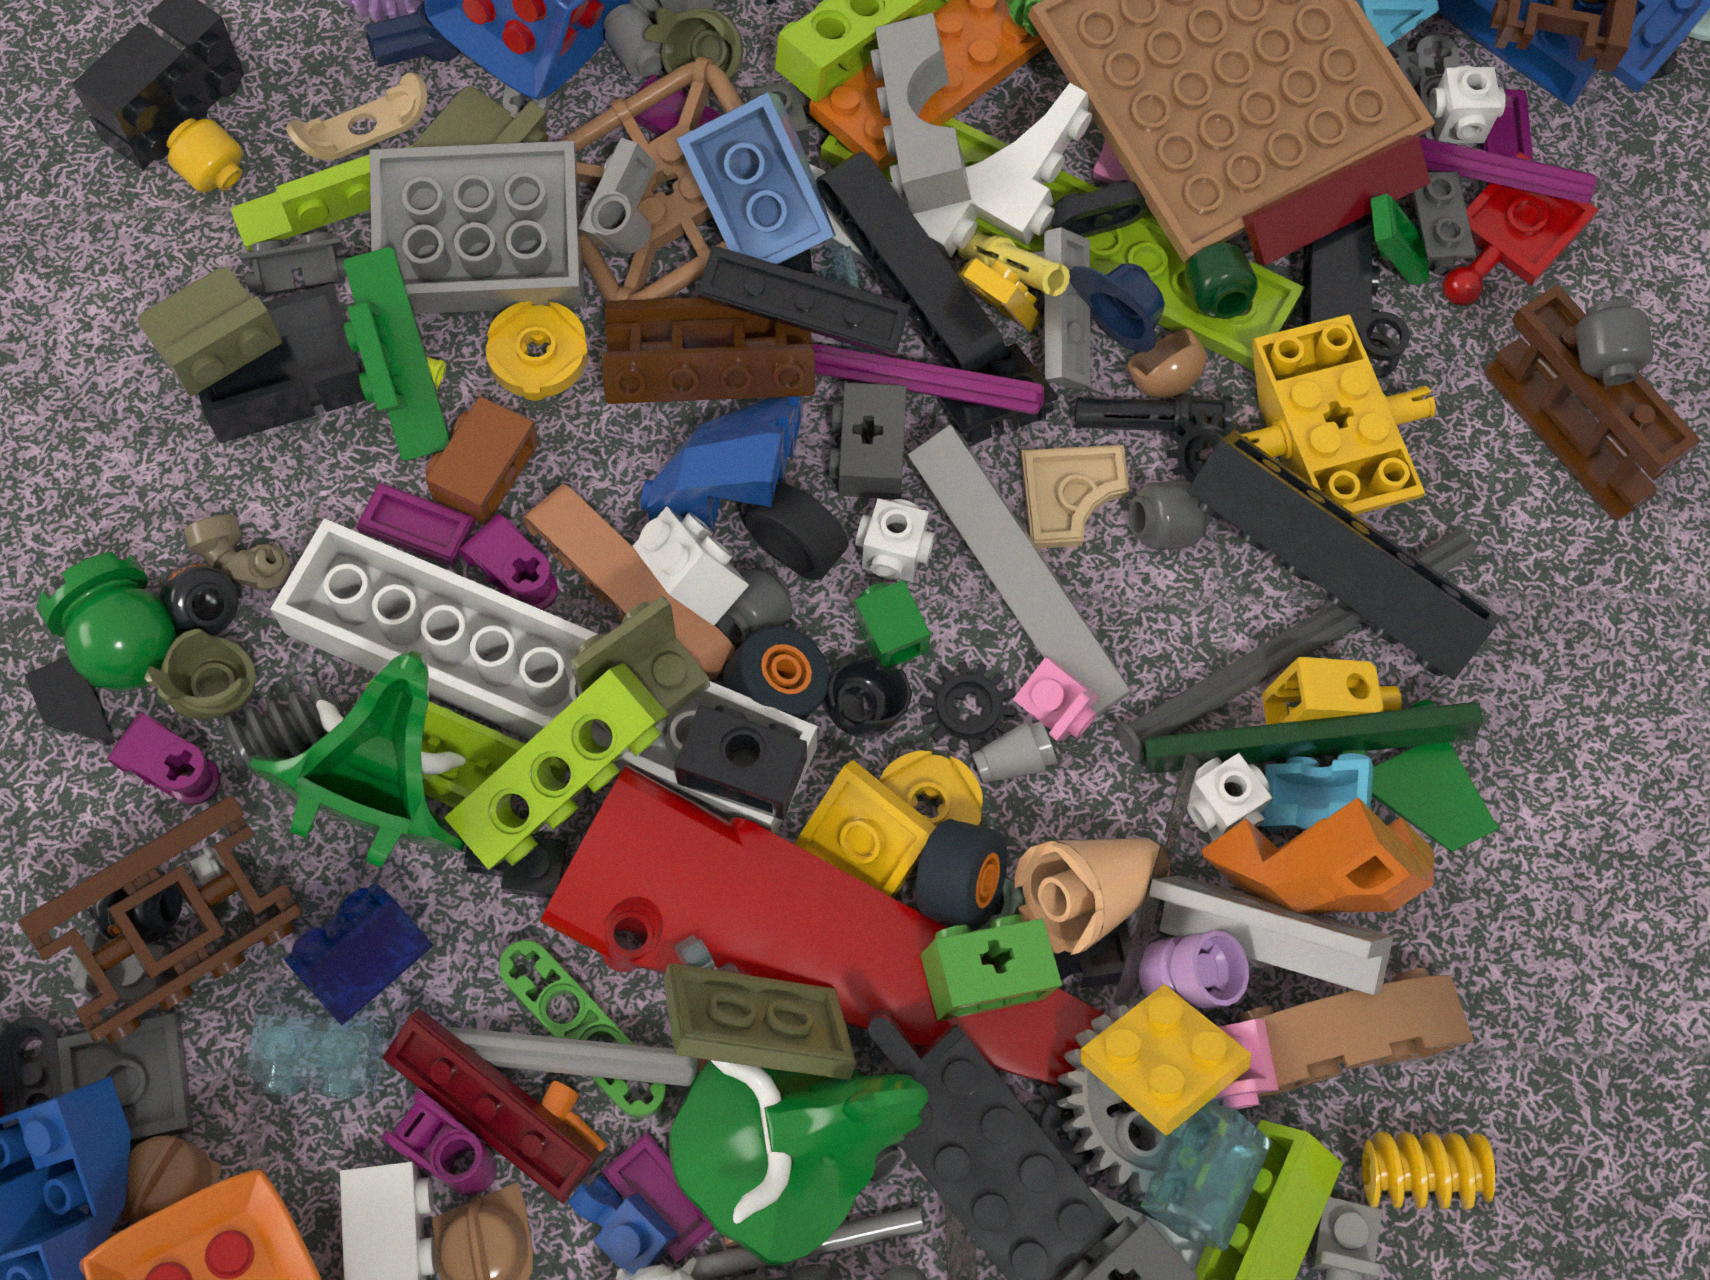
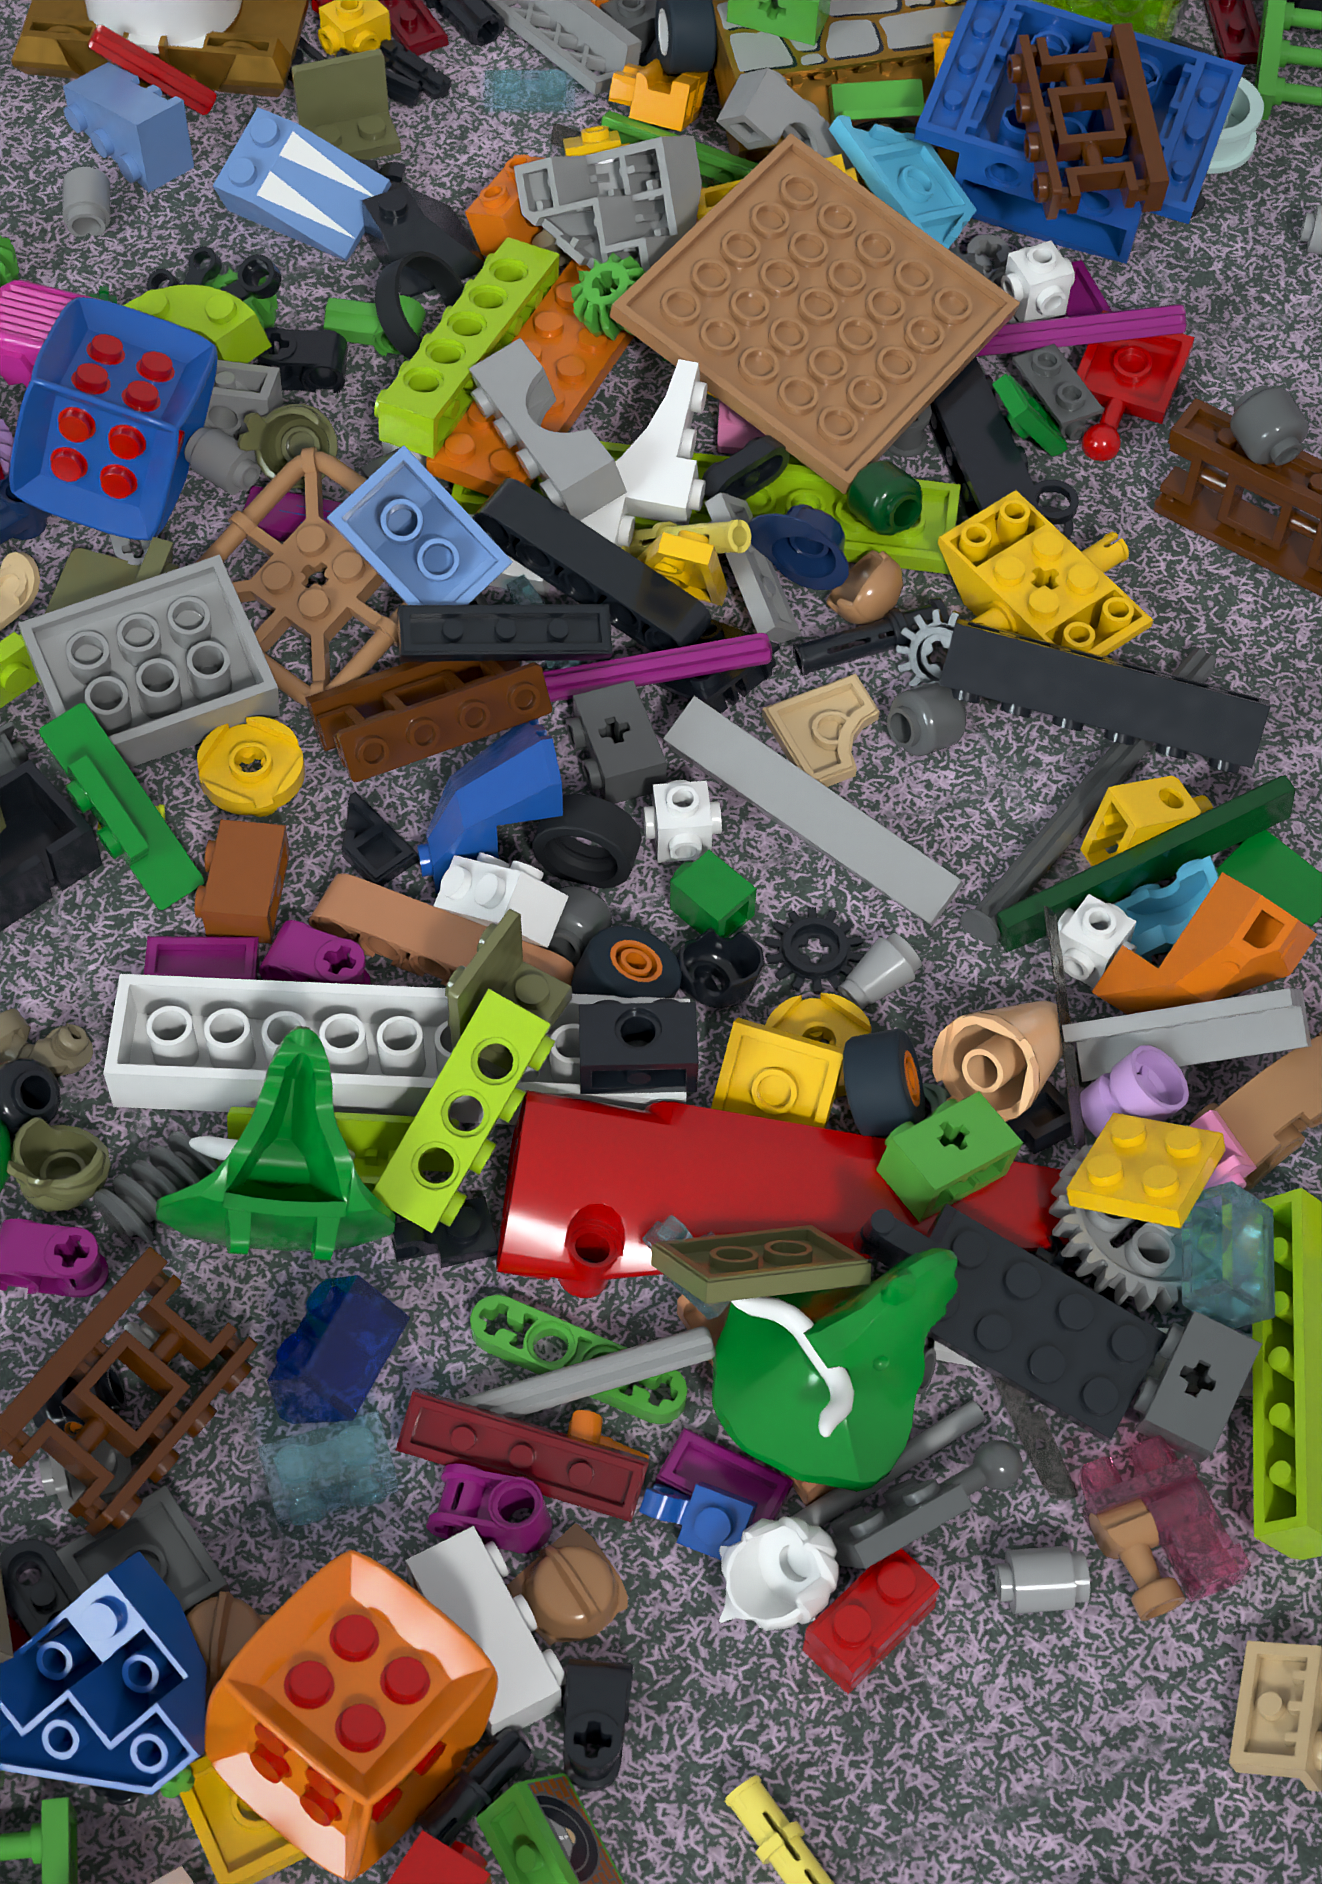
camera: 20 degrees left, 10 degrees down
(613, 462) = (374, 845): none -> black tile
(617, 197) = (280, 598): light grey plate -> none
(1058, 700) = (898, 910): bright pink bracket -> none
(1335, 200) = (959, 396): dark red tile -> none

